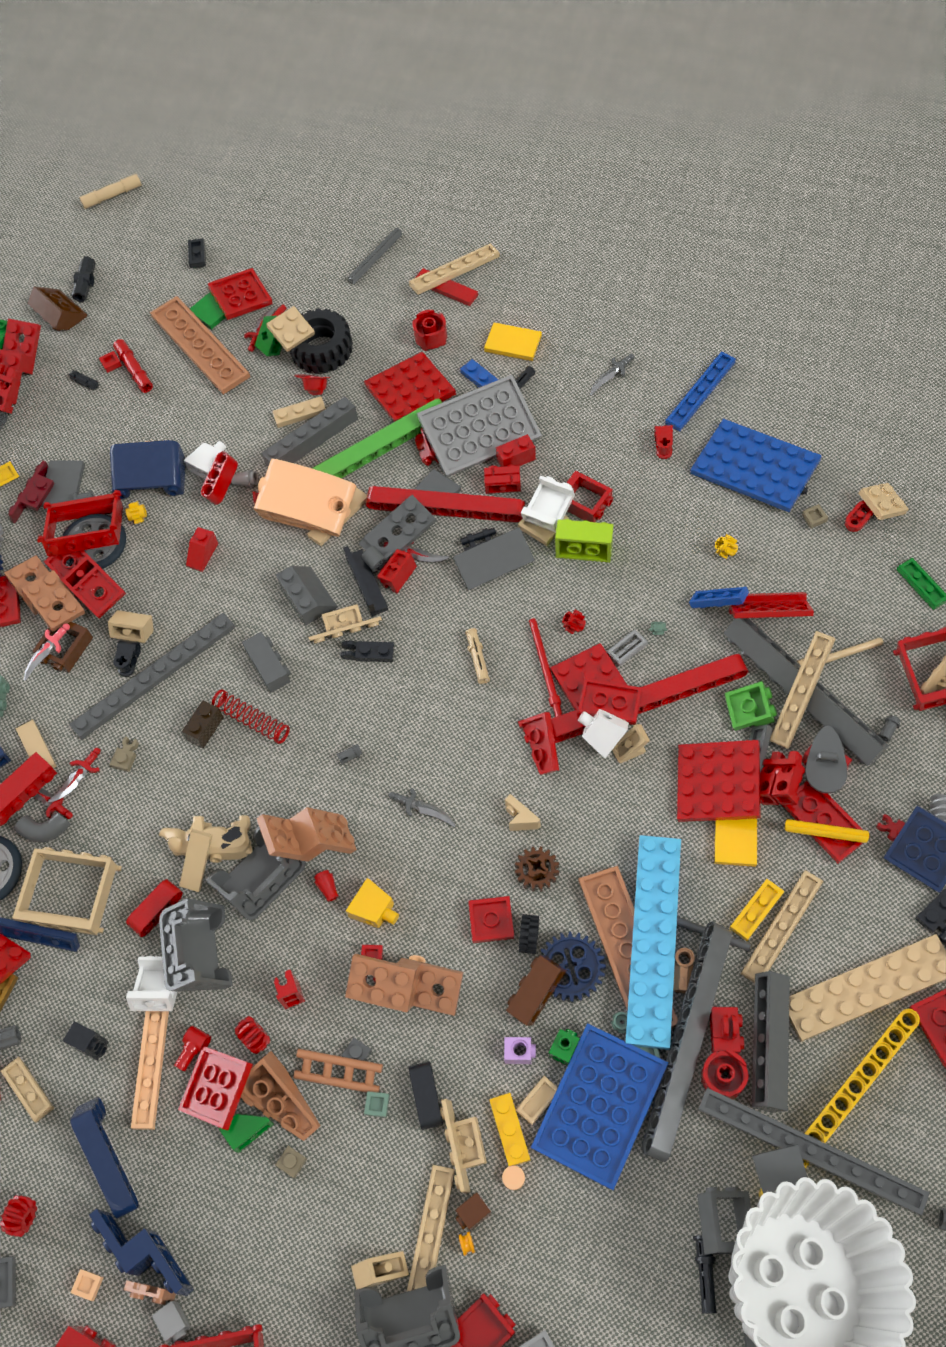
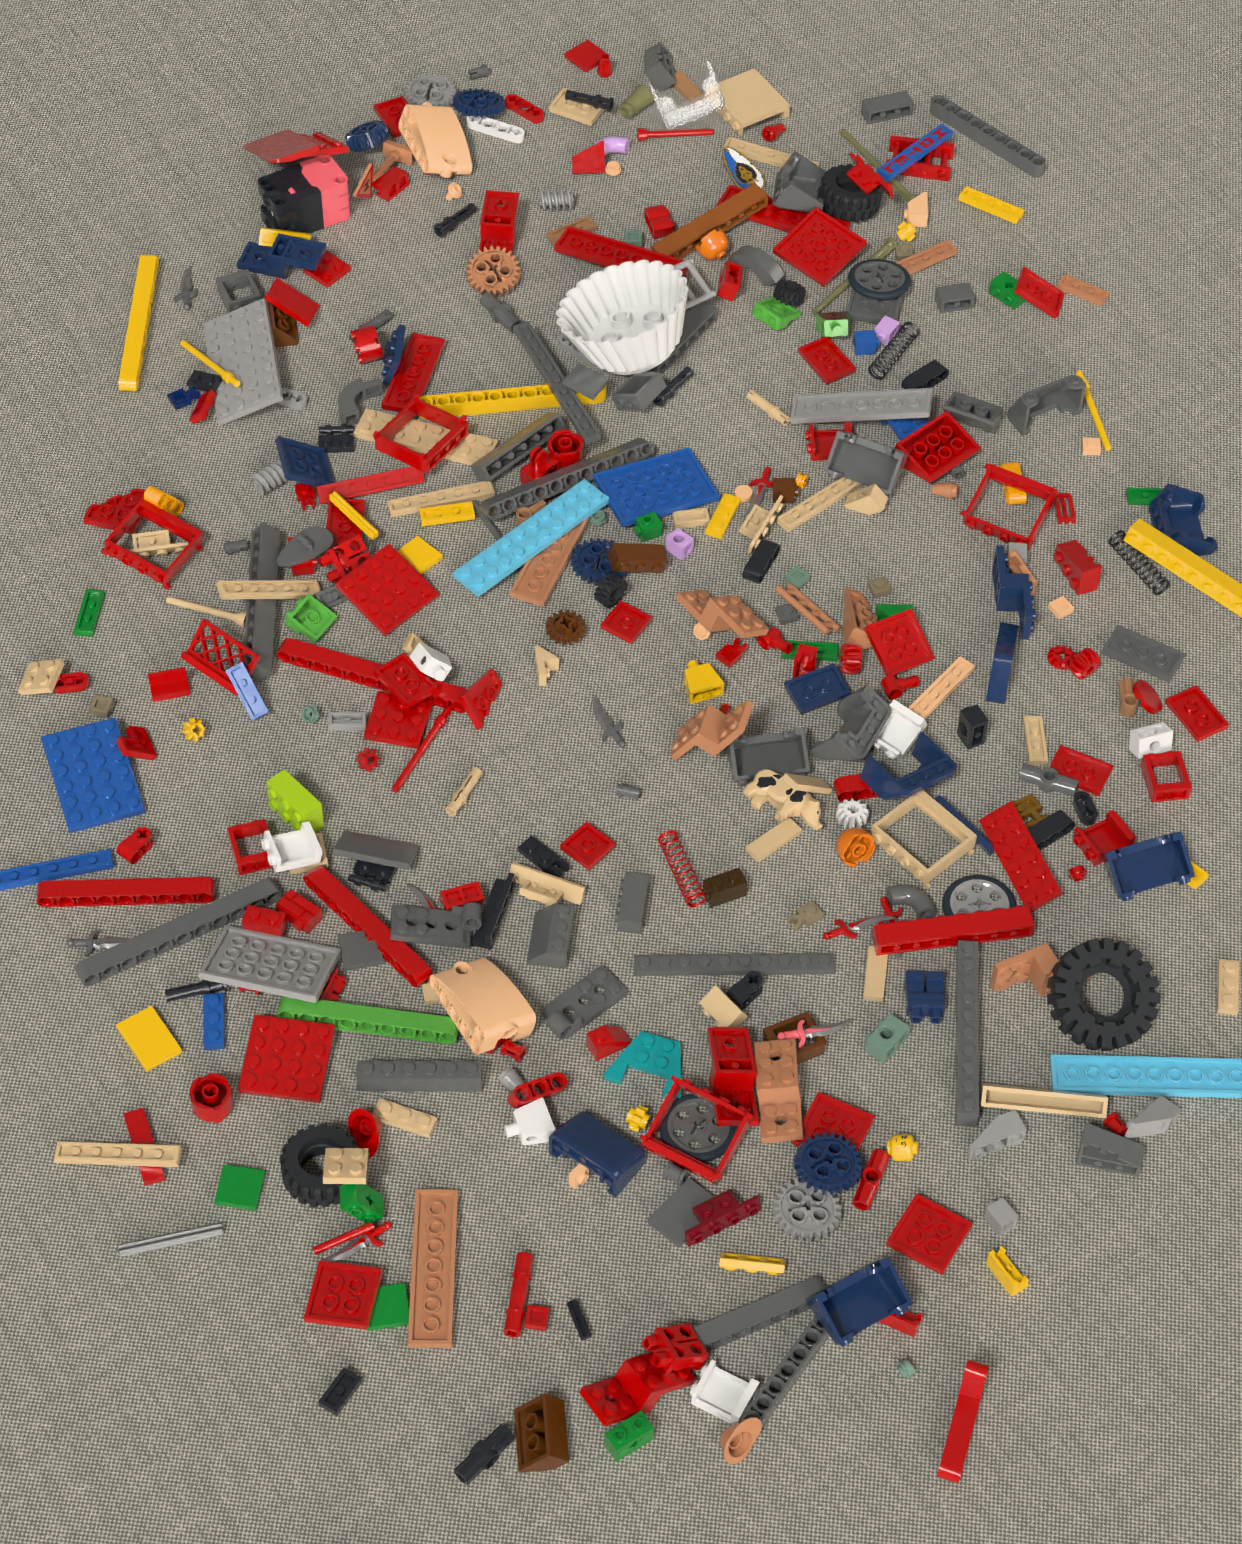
camera: 150 degrees left, 10 degrees down
(61, 1222) = (1054, 657): none -> red gear
(92, 935) = (935, 768): none -> dark blue windscreen
(121, 838) = (855, 845): none -> orange cylinder
(136, 873) = (852, 814): none -> white gear
(163, 566) = (651, 1055): none -> teal wing
(198, 799) = (773, 839): none -> tan tile
(241, 542) = (566, 1026): none -> dark grey hinge
(257, 988) = (817, 688): none -> dark blue plate
(304, 1026) = (825, 651): none -> green tile
(341, 682) = (587, 845): none -> red plate
(344, 1006) = (774, 640): none -> red pin
(363, 306) = (240, 1187): none -> green tile
(501, 1198) = (758, 493): none -> piece
(567, 410) = (176, 932): none -> dark grey beam
(584, 1331) = (773, 412): none -> tan pin
(632, 408) = (125, 892): none -> red beam
(747, 507) = (137, 745): none -> red plate
(787, 569) = (168, 684): none -> red panel
(831, 971) = (424, 462): none -> red window
(854, 885) = (371, 483): none -> red plate

